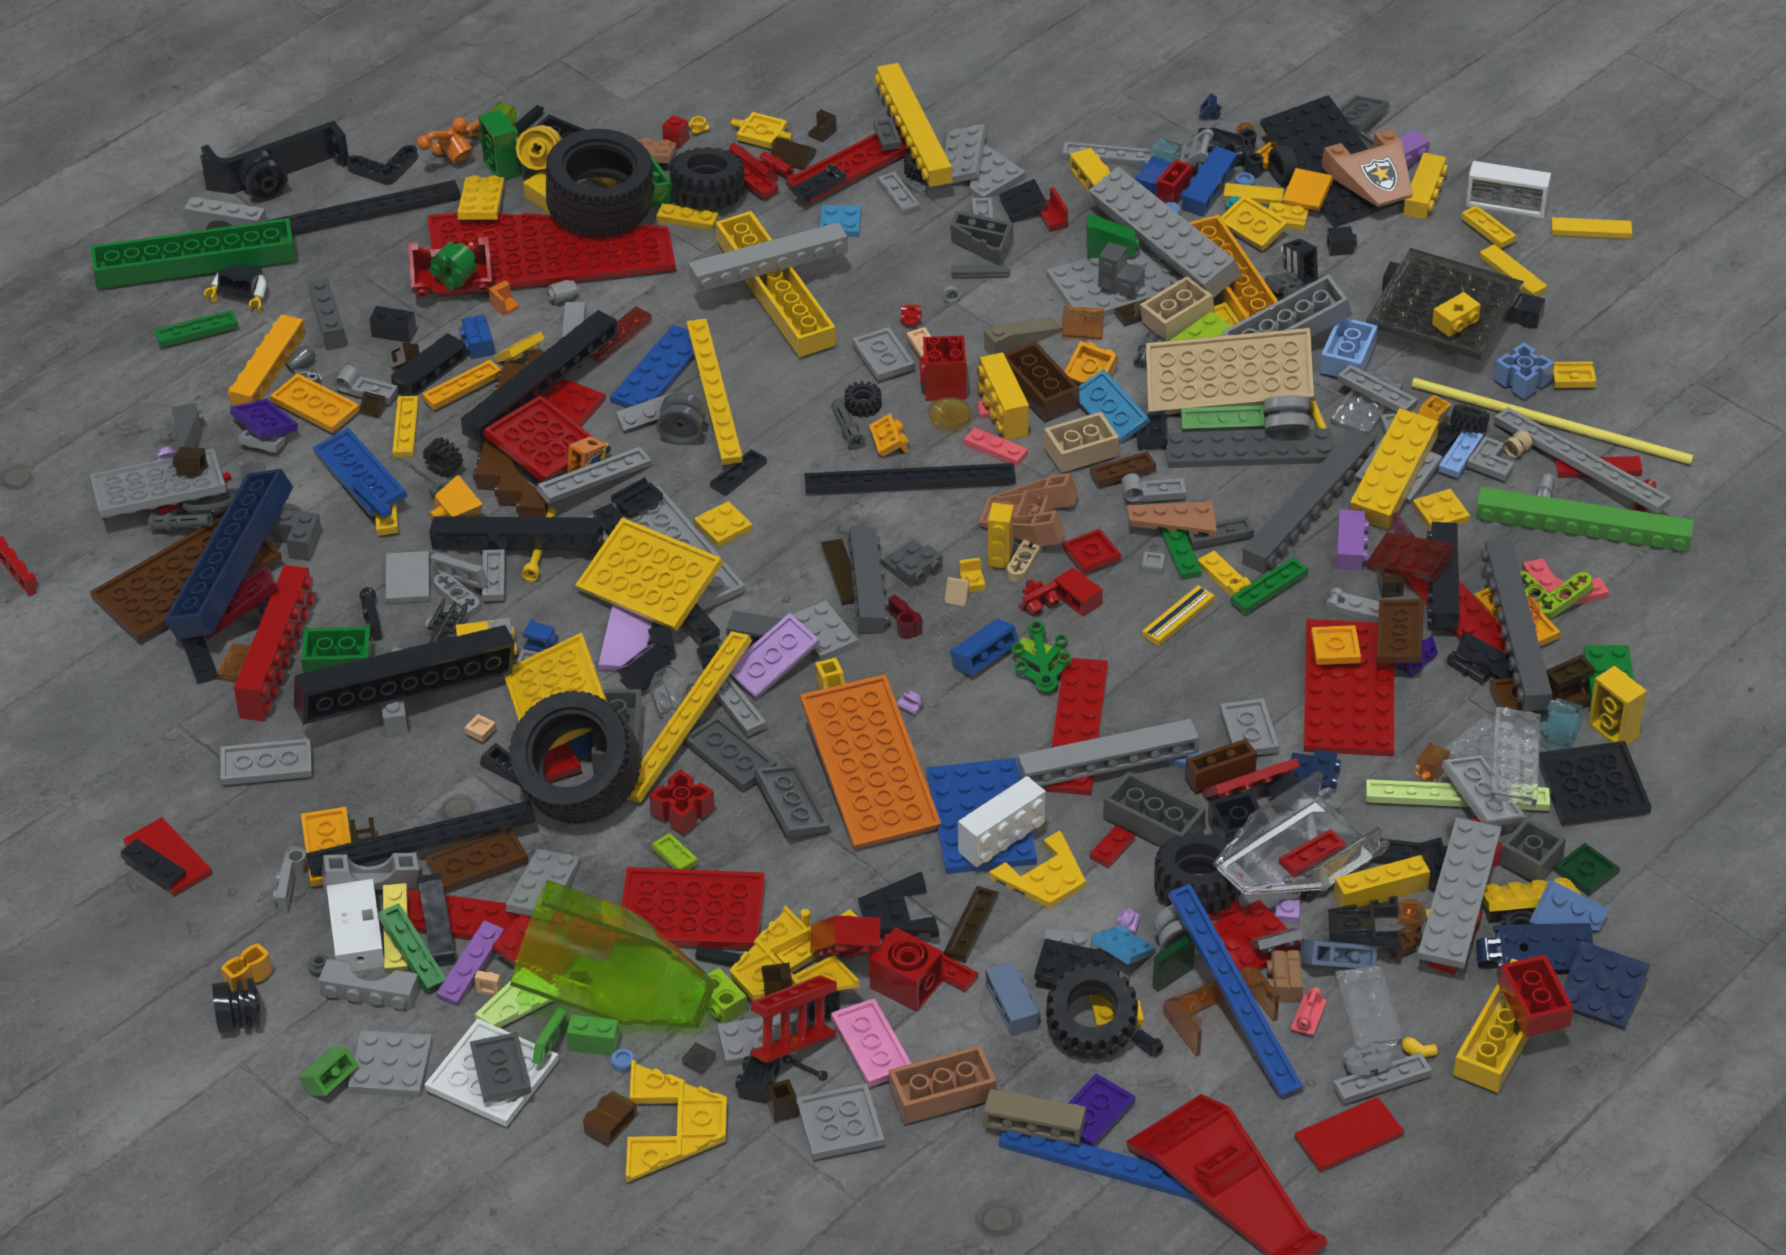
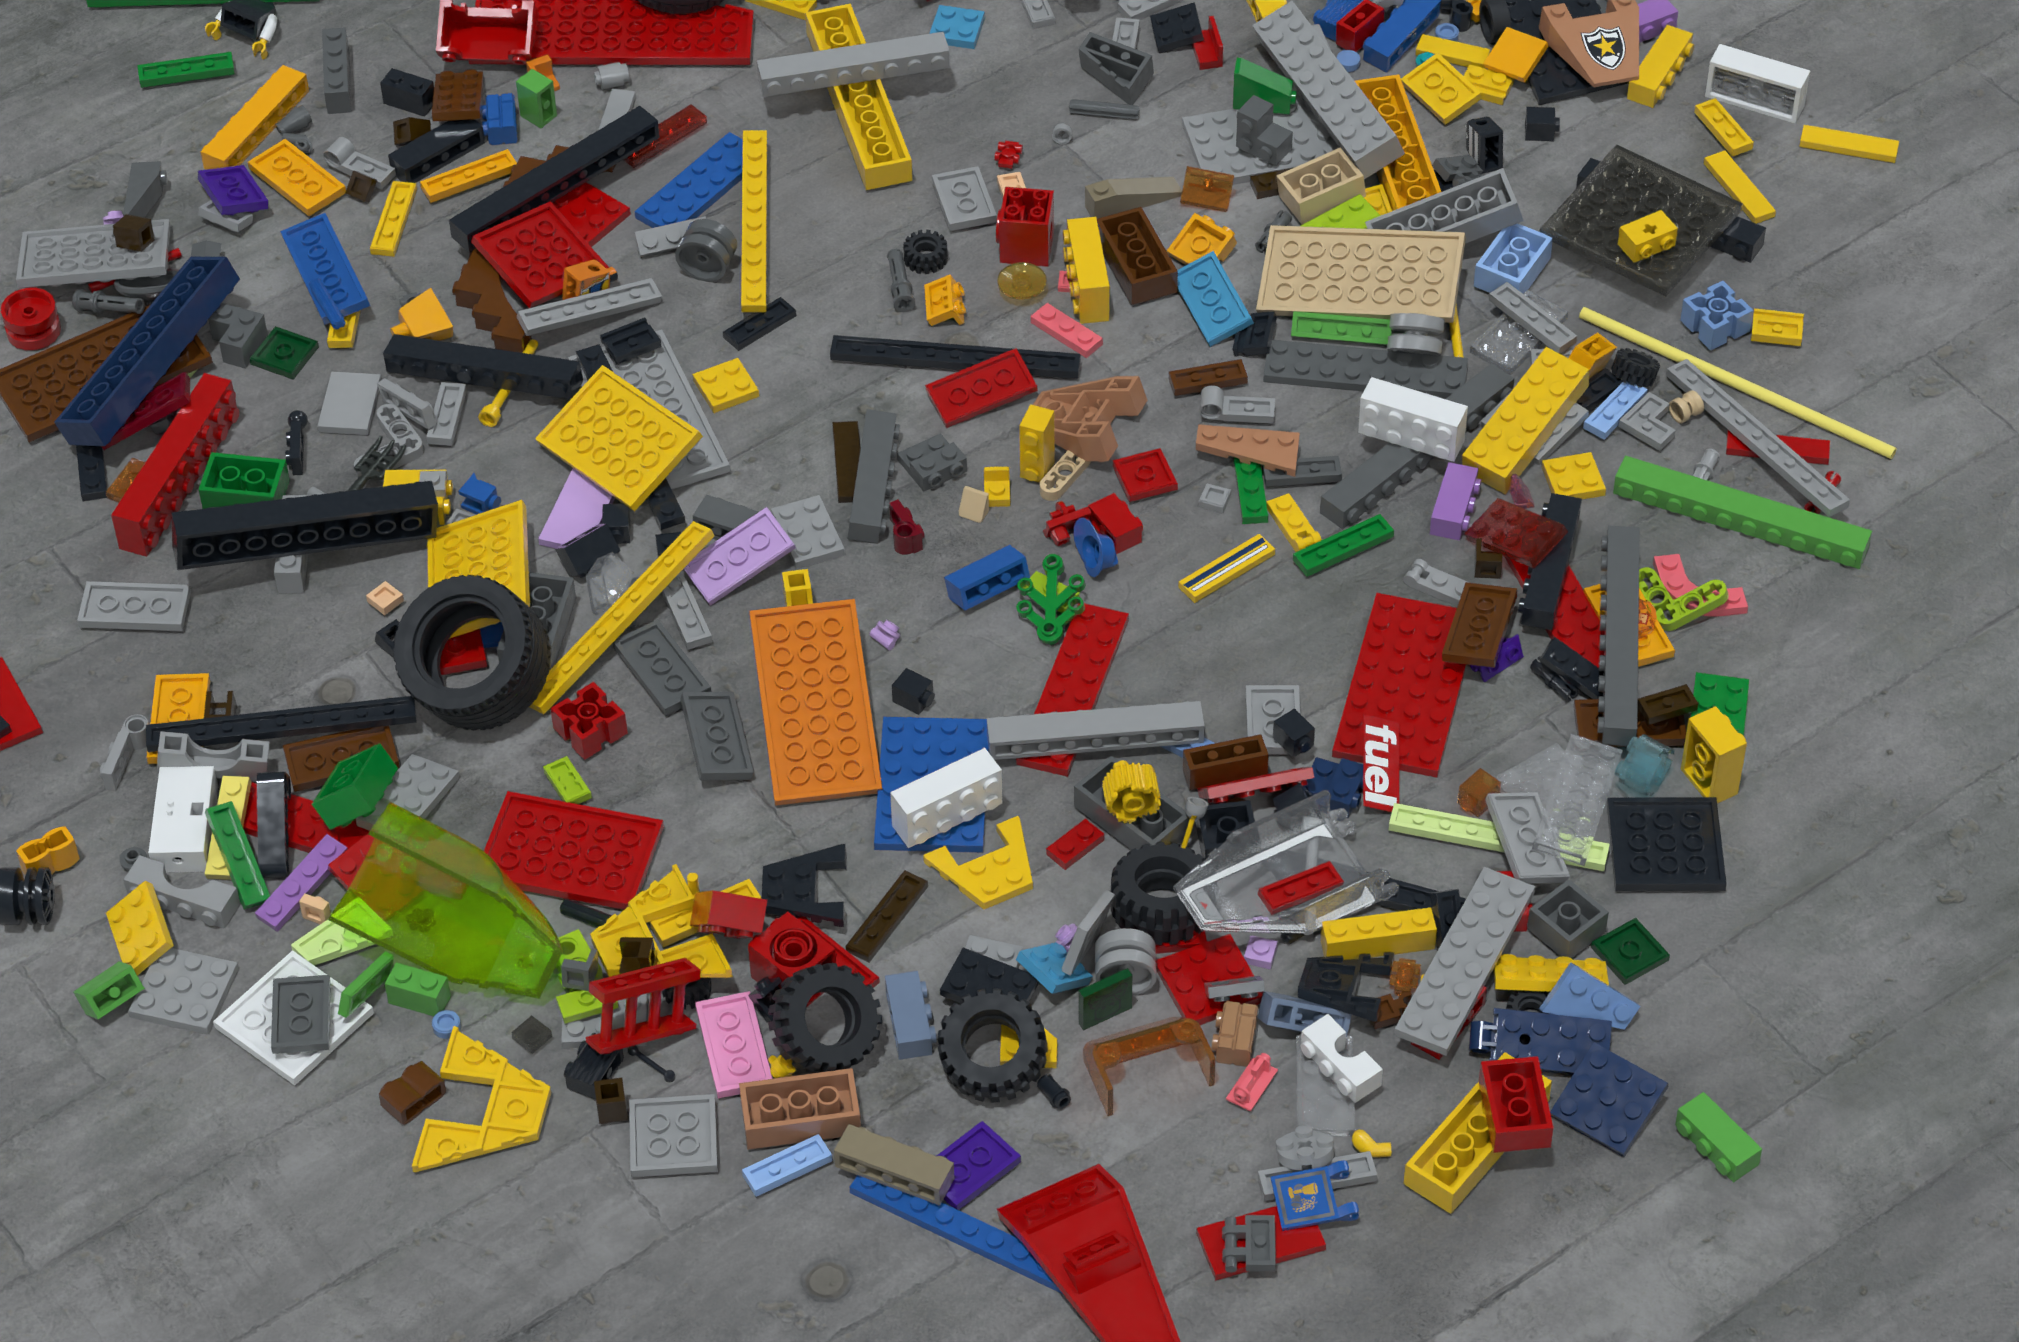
camera: 10 degrees right, 5 degrees up
(116, 542) = (30, 318): none -> red wheel
(340, 544) = (284, 353): none -> dark green tile
(341, 1017) = (139, 928): none -> yellow plate
(437, 321) = (458, 95): none -> reddish brown plate
(443, 457) = (422, 263): black tyre -> none
(453, 265) = (489, 30): green brick -> none
(500, 878) = (355, 787): none -> green brick
(505, 316) = (536, 98): none -> bright green brick
(518, 349) = (550, 137): yellow plate -> none
(731, 1001) = (579, 974): none -> dark grey panel
(738, 1025) = (579, 1005): none -> lime plate
(892, 1001) = (763, 995): none -> black bracket
(916, 1053) = (781, 1067): none -> yellow plate
(938, 499) = (981, 388): none -> red tile
(942, 1131) = (787, 1165): none -> light blue plate
(946, 744) = (912, 691): none -> black brick
(972, 996) = (858, 1010): none -> black tyre
(1066, 613) = (1094, 548): none -> blue piece
(1081, 442) = (1165, 338): tan brick -> none
(1147, 911) = (1087, 932): none -> light grey tile
(1156, 794) = (1131, 791): none -> yellow brick
(1209, 803) = (1195, 809): none -> light grey hinge
(1235, 991) = (1164, 1046): blue plate -> none
(1272, 734) = (1293, 733): none -> black brick
(1305, 477) = (1412, 419): none -> white brick
(1335, 645) = (1399, 631): light orange plate -> none
(1348, 749) = (1380, 763): none -> sticker
(1351, 1137) = (1259, 1243): none -> dark grey plate
(1381, 1095) = (1308, 1197): none -> blue flag
(1392, 994) = (1353, 1075): none -> white arch
(1698, 1002) = (1718, 1137): none -> bright green brick

